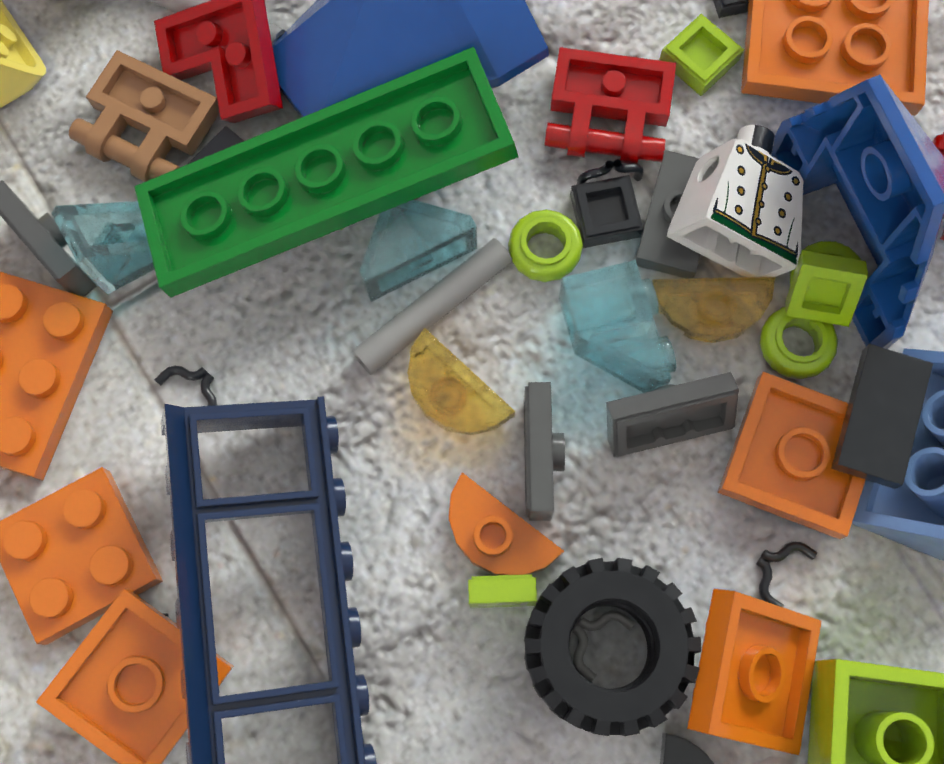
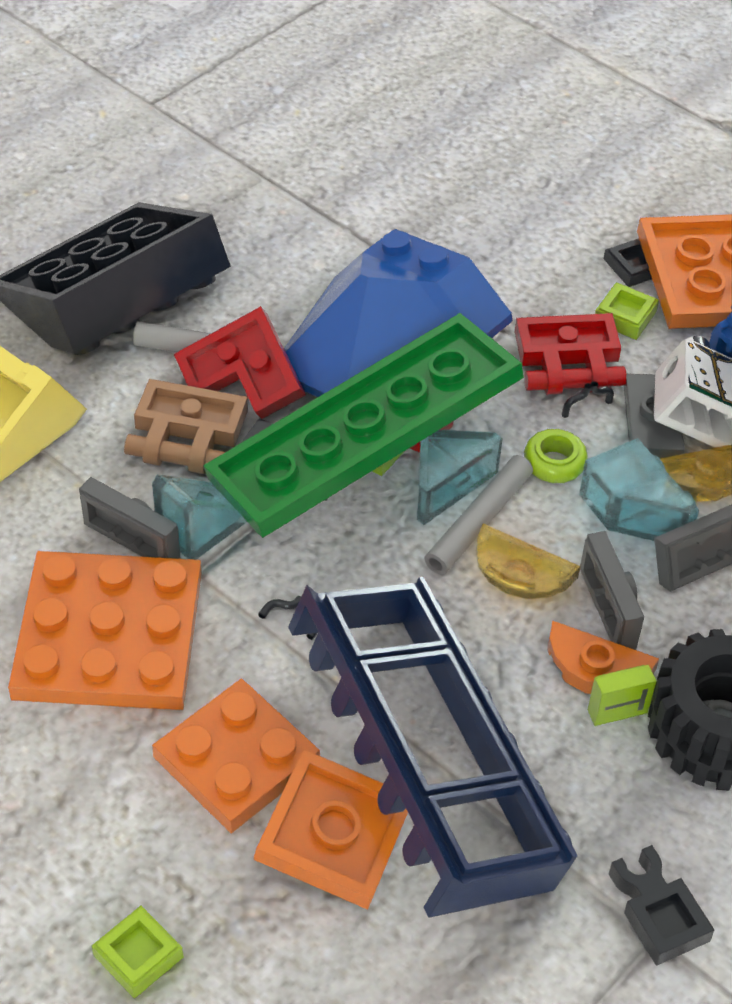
camera: 20 degrees left, 25 degrees down
(606, 211) = (595, 424): black tile -> none

